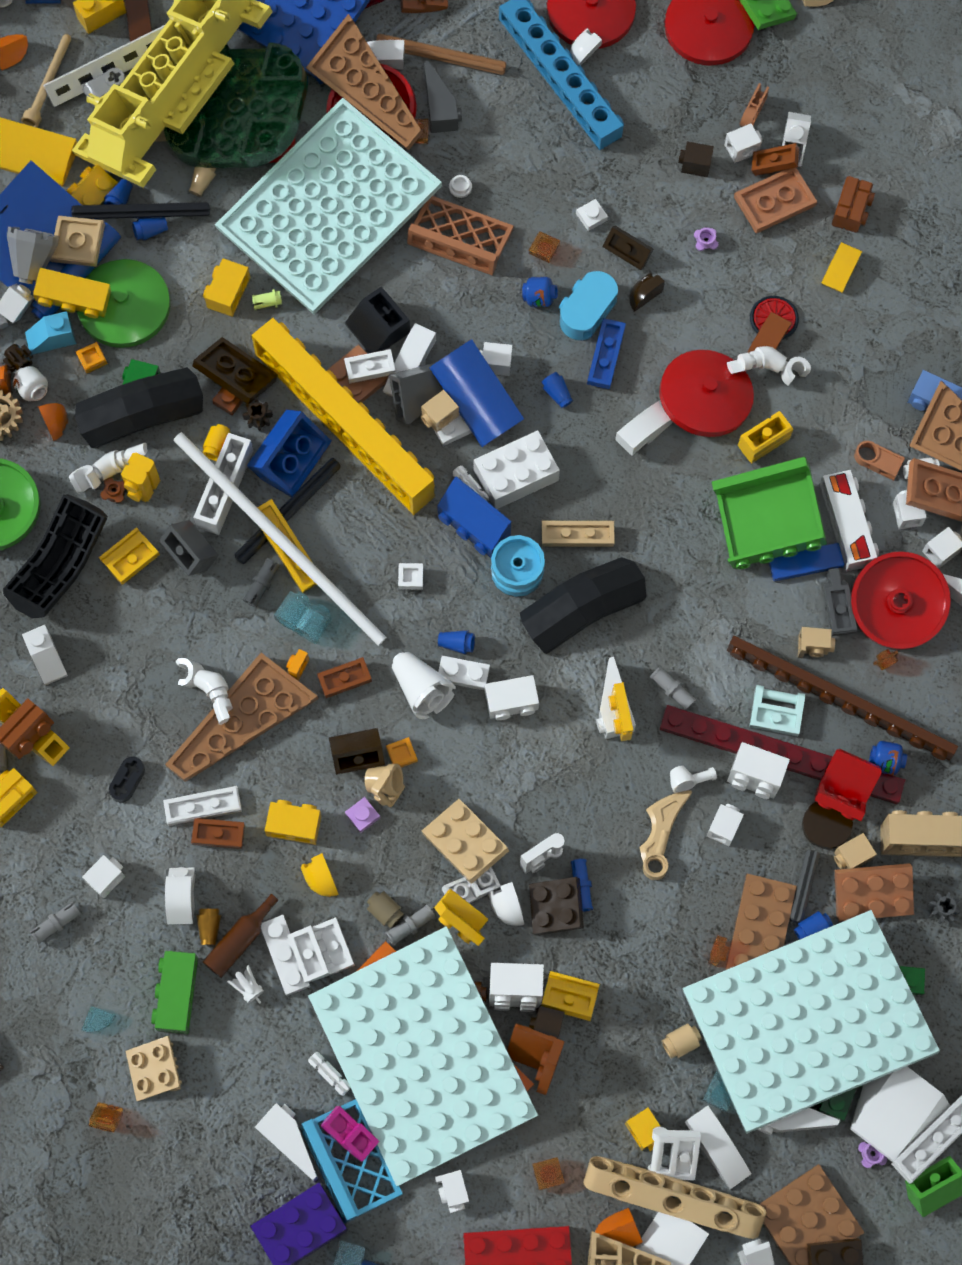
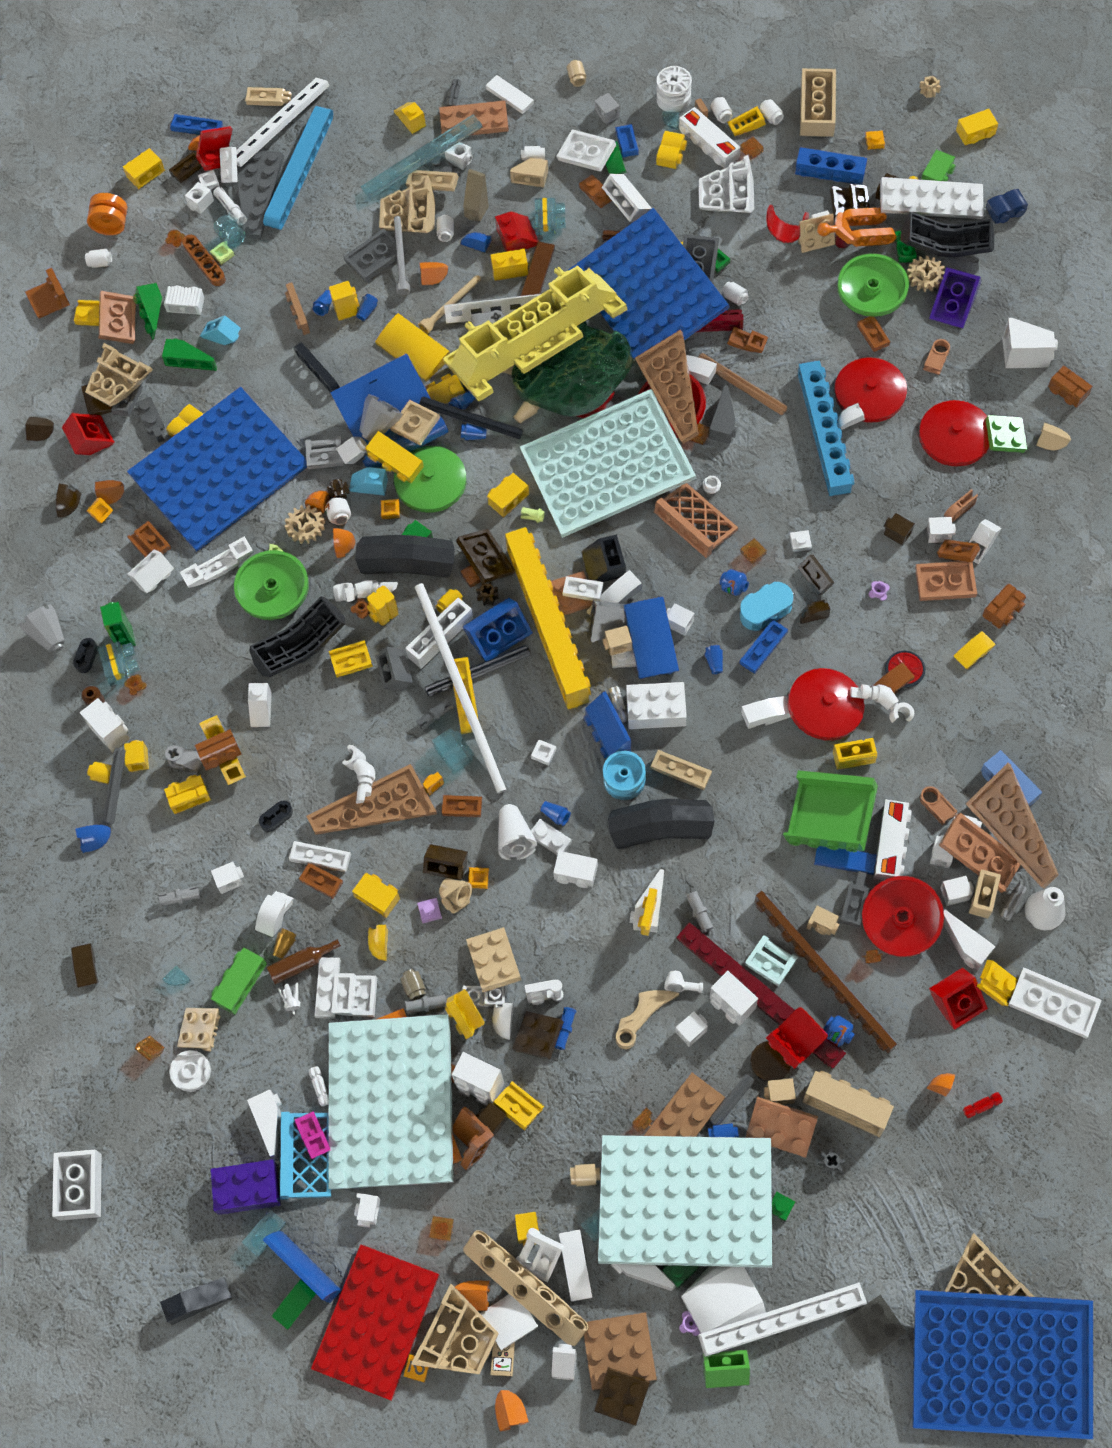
camera: 30 degrees right, 5 degrees down
(166, 1122) = (190, 1071): none -> white tile

